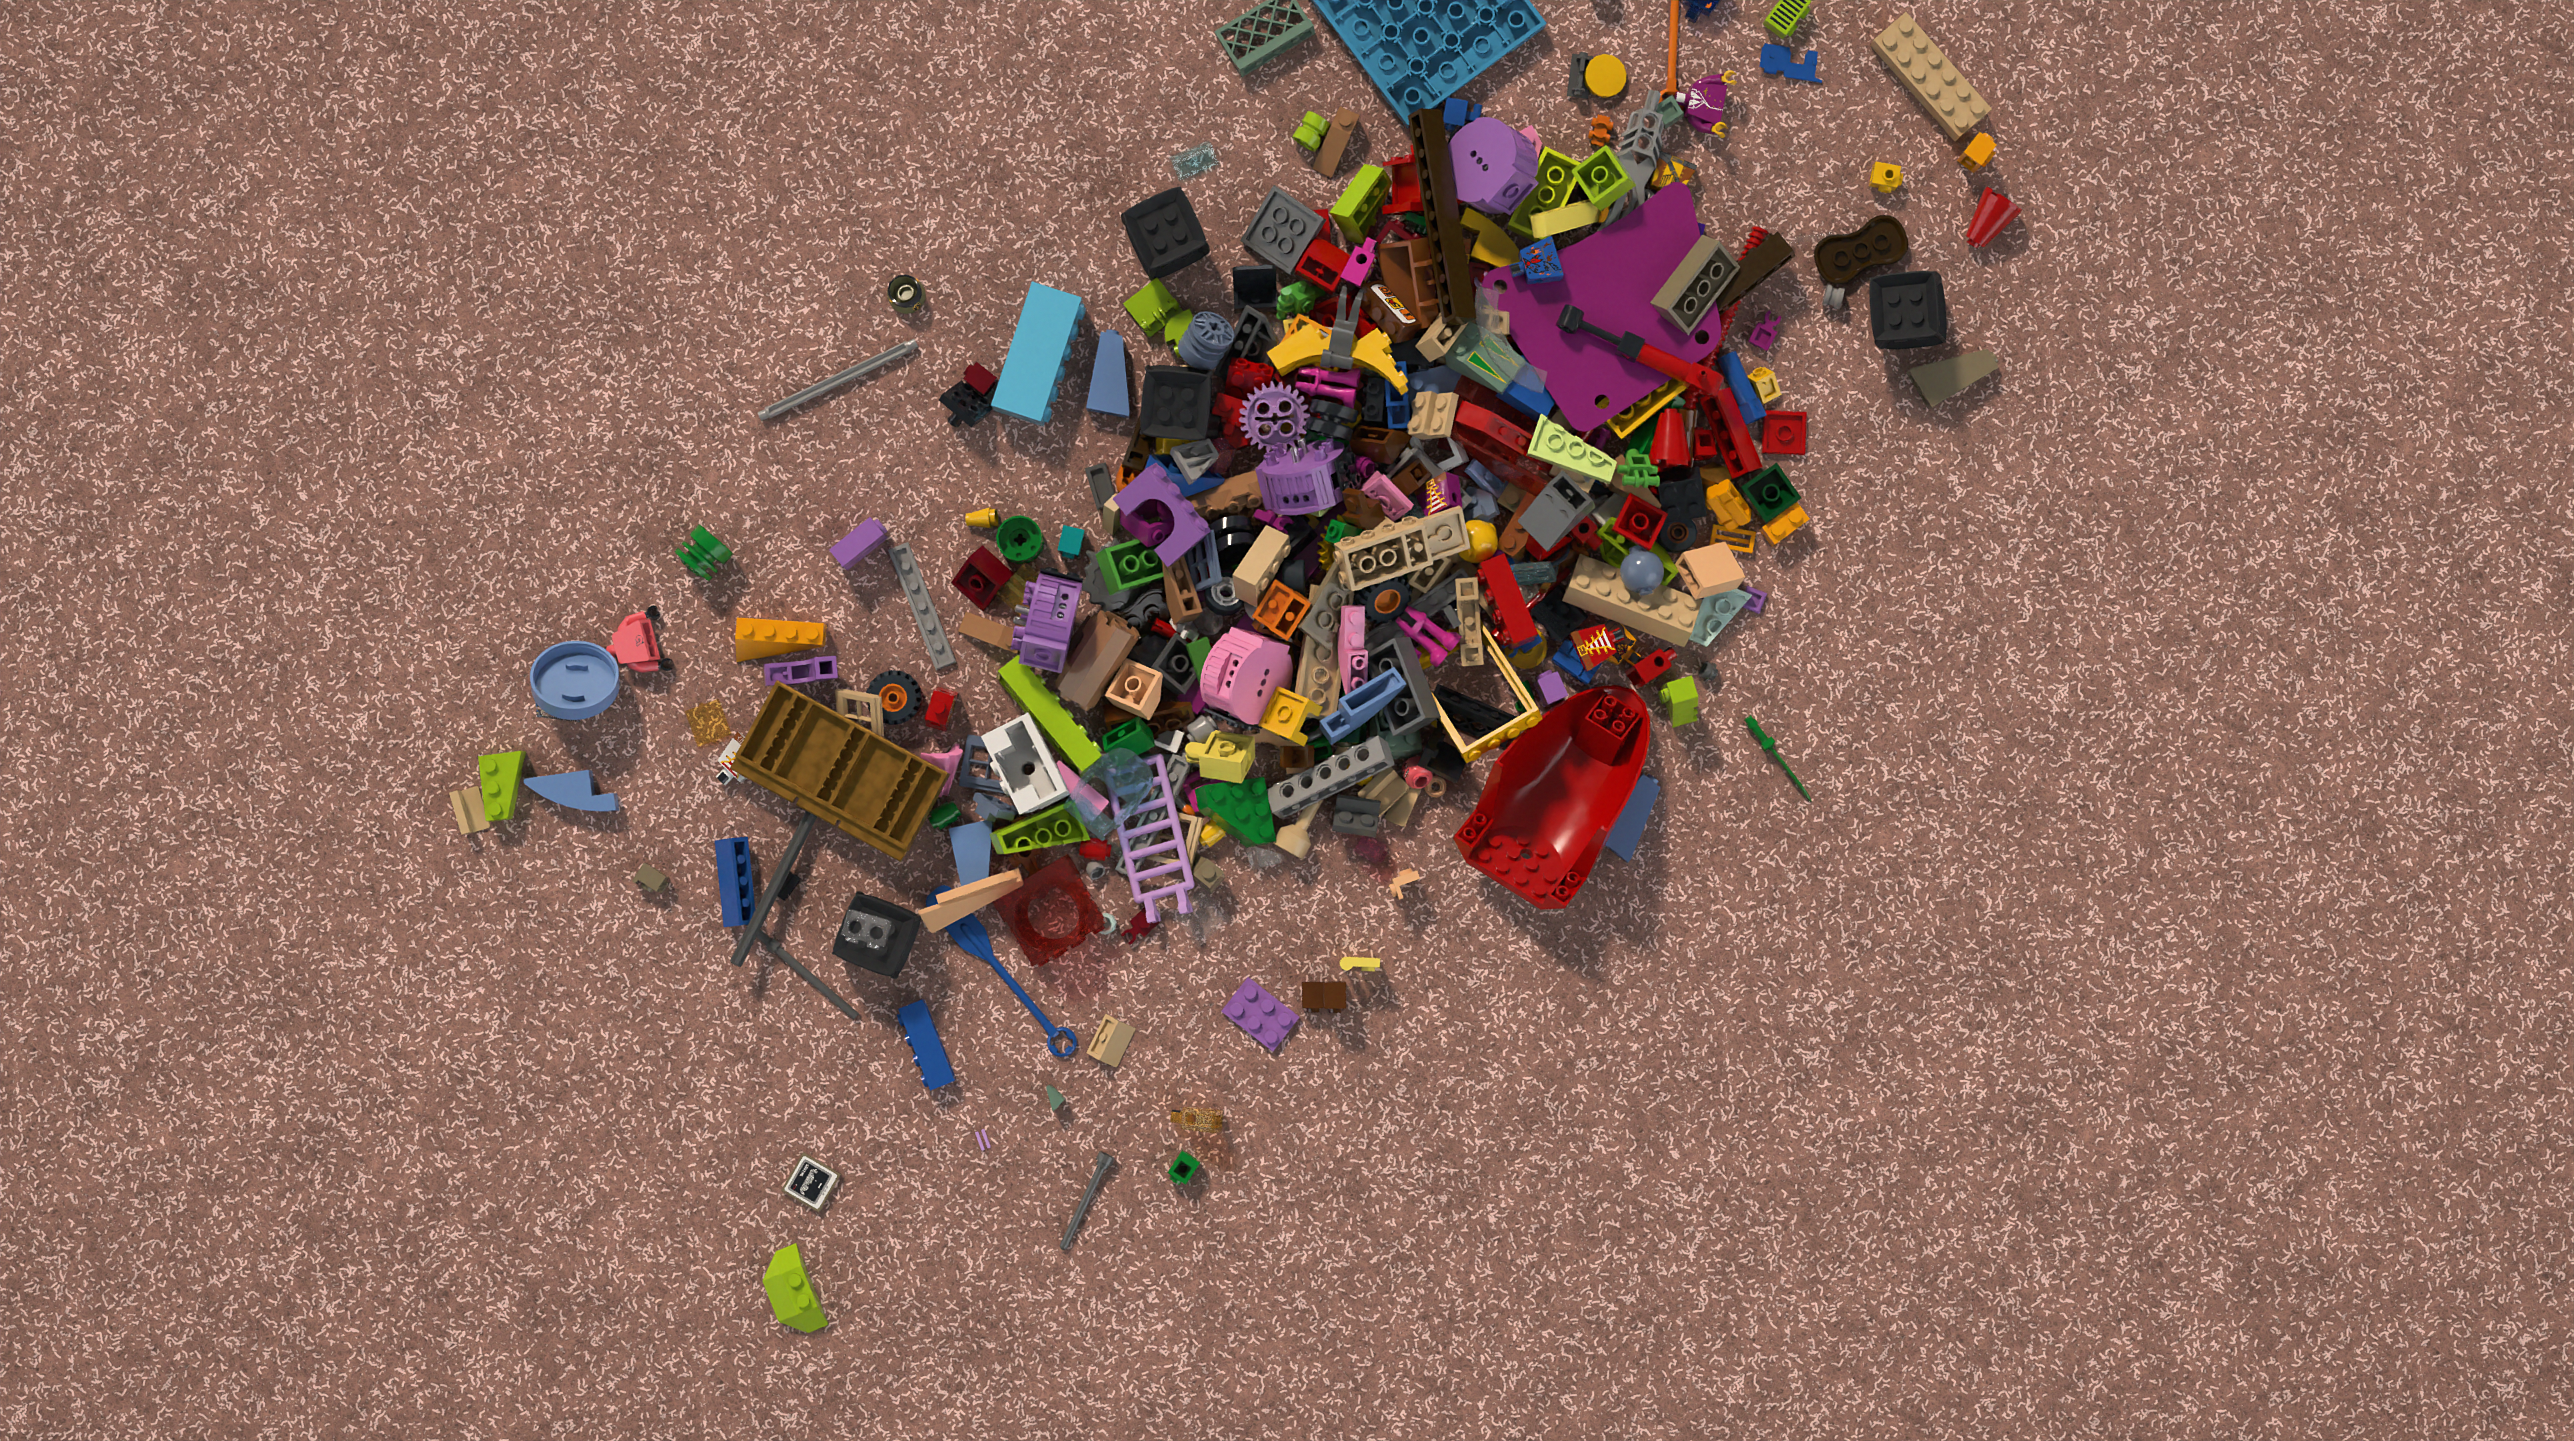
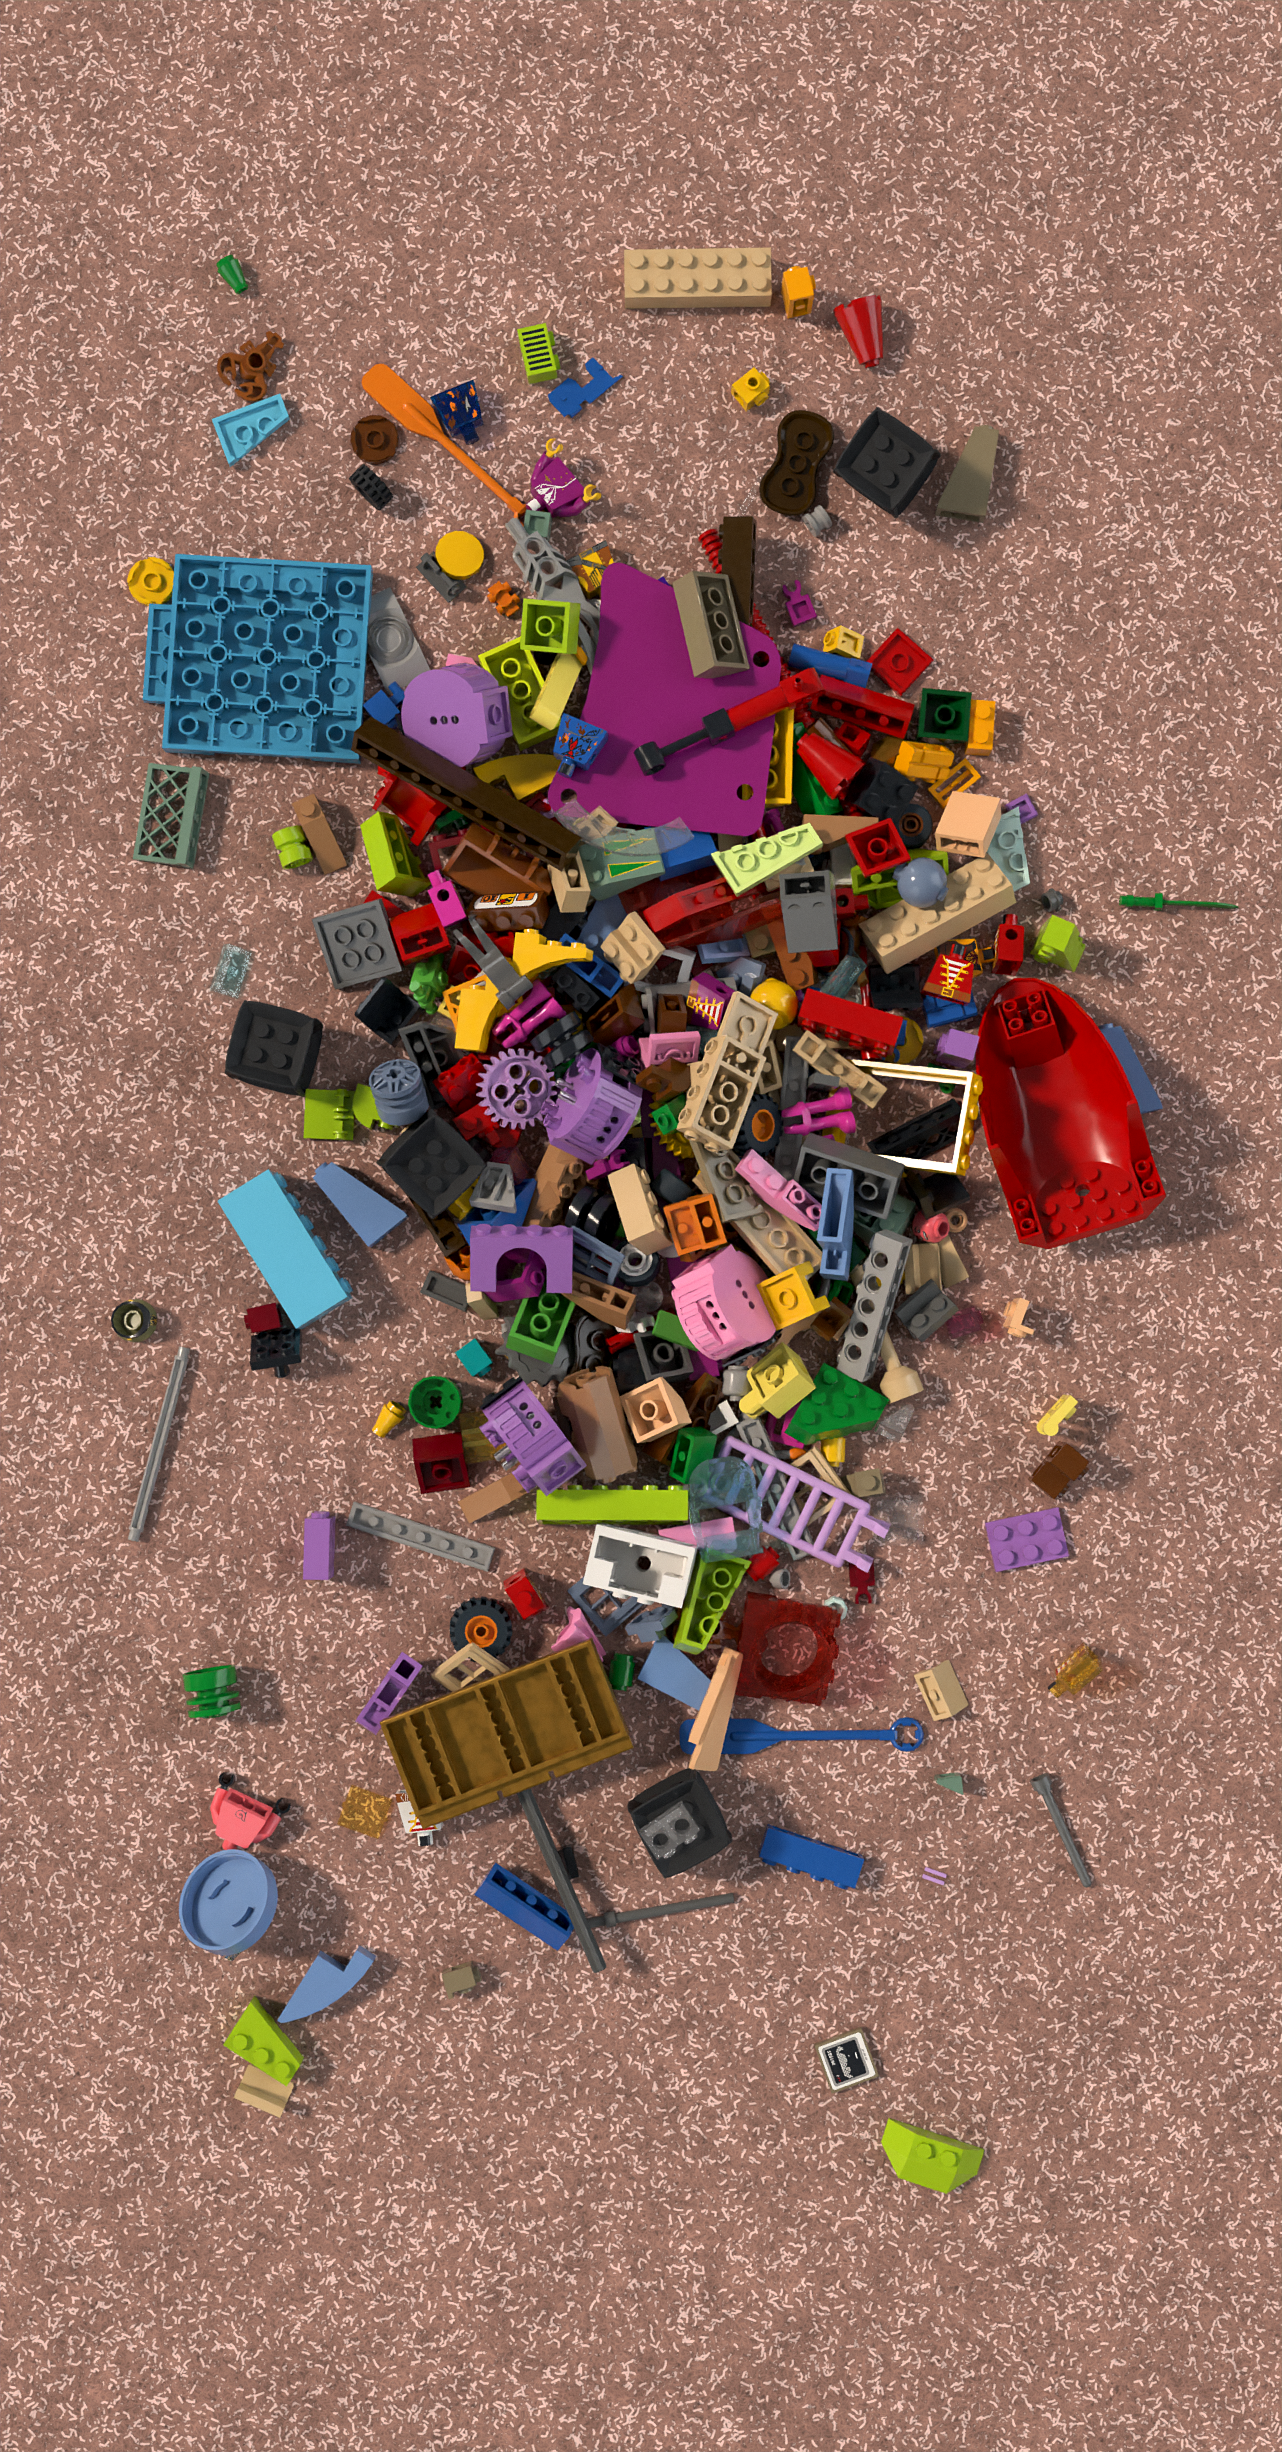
camera: 50 degrees left, 0 degrees up
(776, 637) = (336, 1694): light orange wedge -> none
(1186, 1159) = (1111, 1730): green brick -> none
(1507, 81) = (392, 642): none -> light grey slope
(1638, 470) = (832, 810): bright green piece -> none

